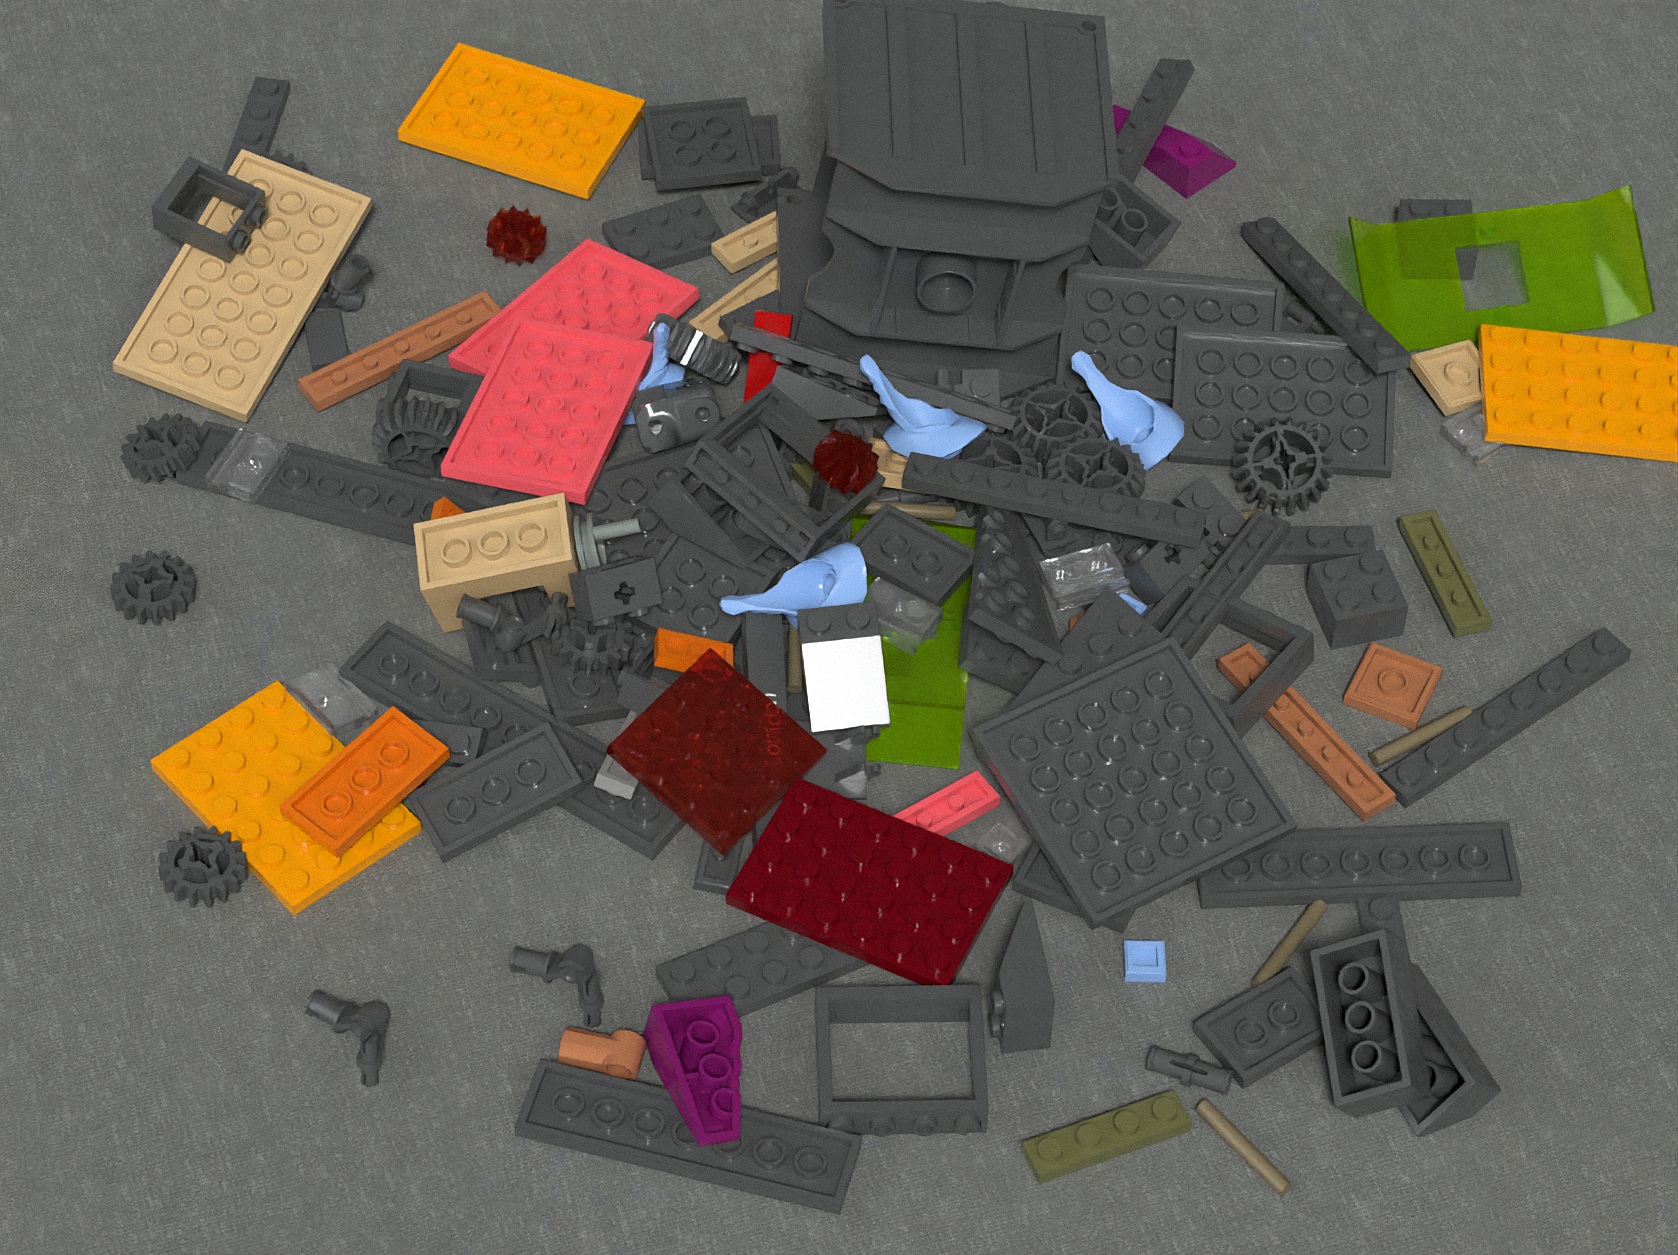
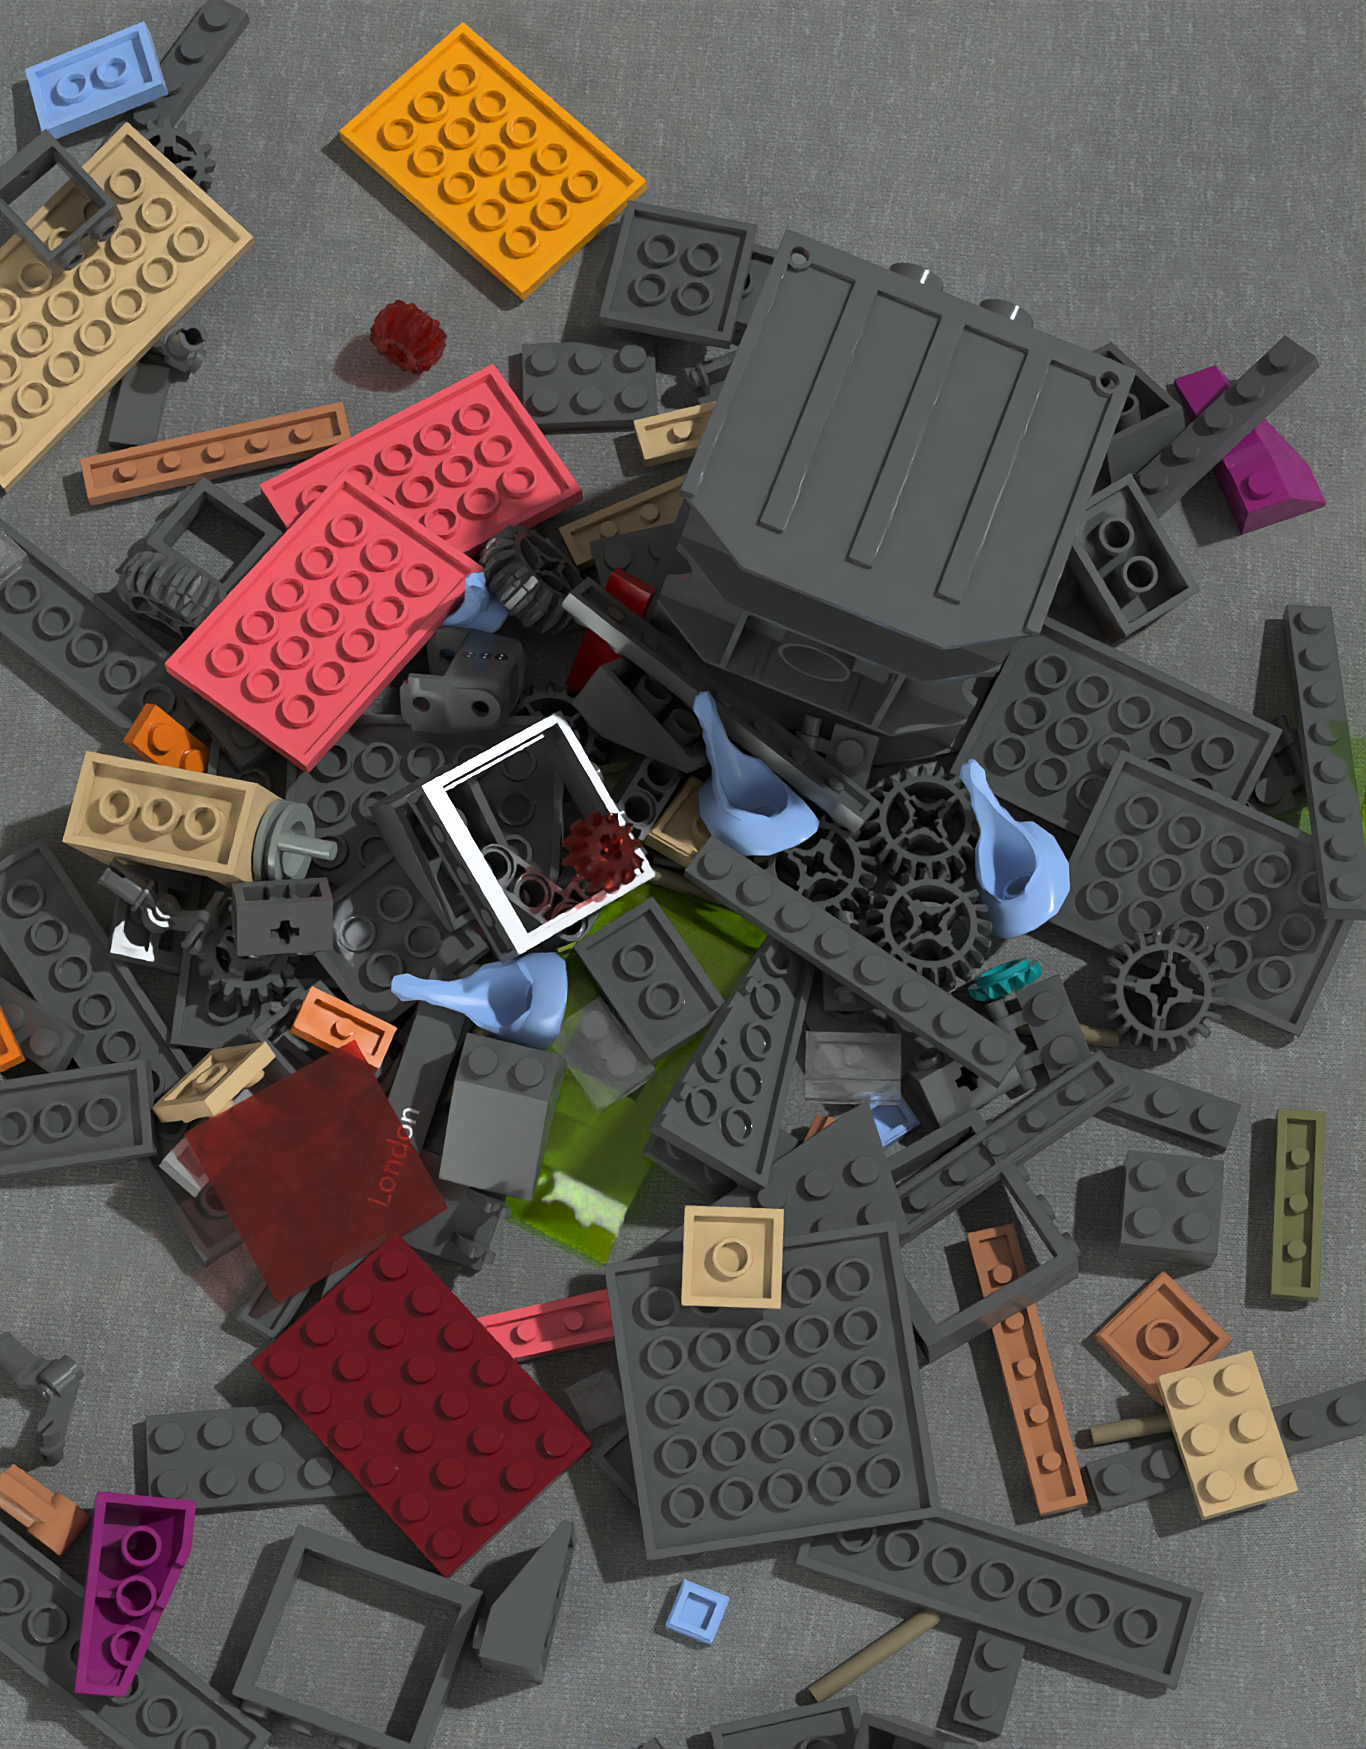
camera: 25 degrees right, 20 degrees up
(207, 136) = (96, 81): none -> light blue plate
(609, 719) = (214, 1082): none -> tan plate
(1067, 688) = (732, 1257): none -> tan plate
(1169, 489) = (1004, 979): none -> teal gear
(1473, 719) = (1226, 1435): none -> tan plate

